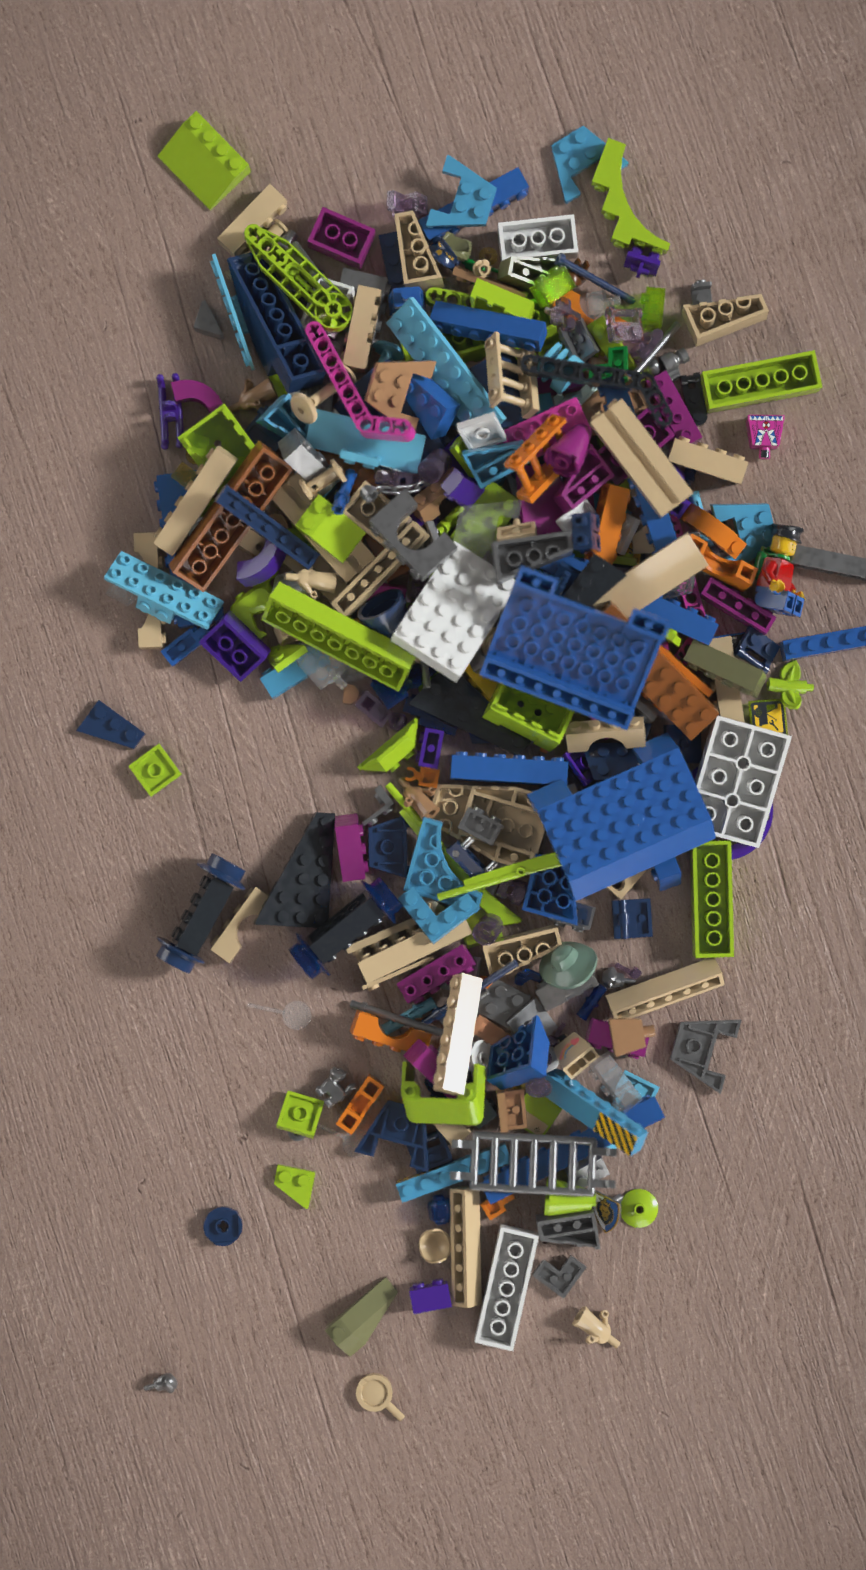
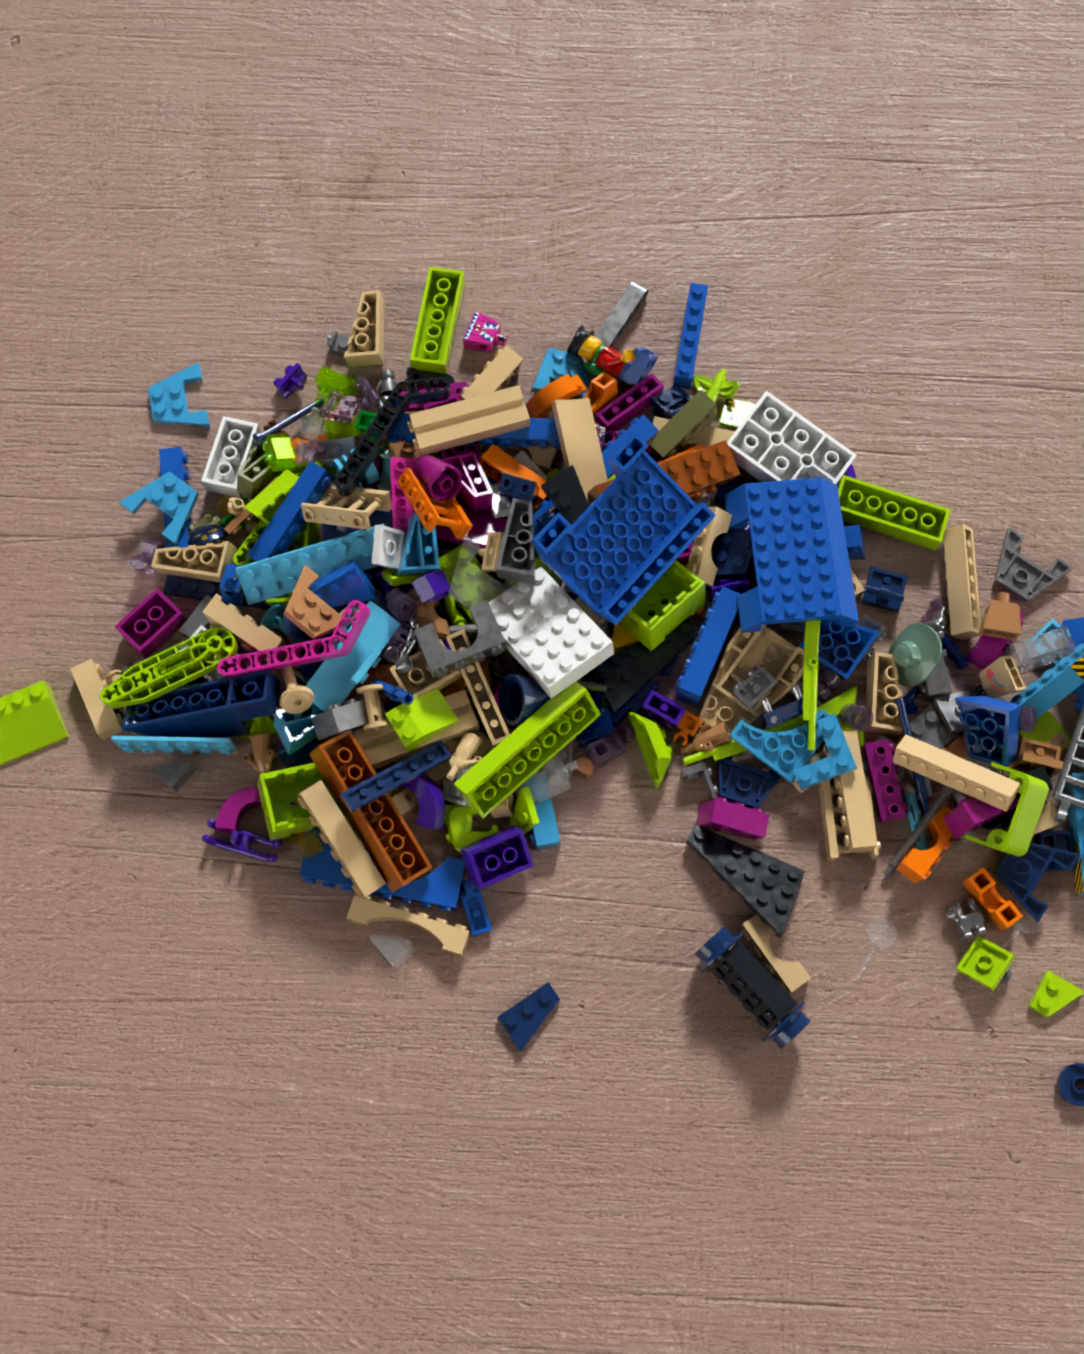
camera: 65 degrees left, 15 degrees down
(155, 770) = (589, 985): lime plate -> none
(162, 593) = (417, 909): medium azure bracket -> none
(345, 927) = (812, 849): black brick -> none
(616, 207) = (231, 383): lime arch -> none

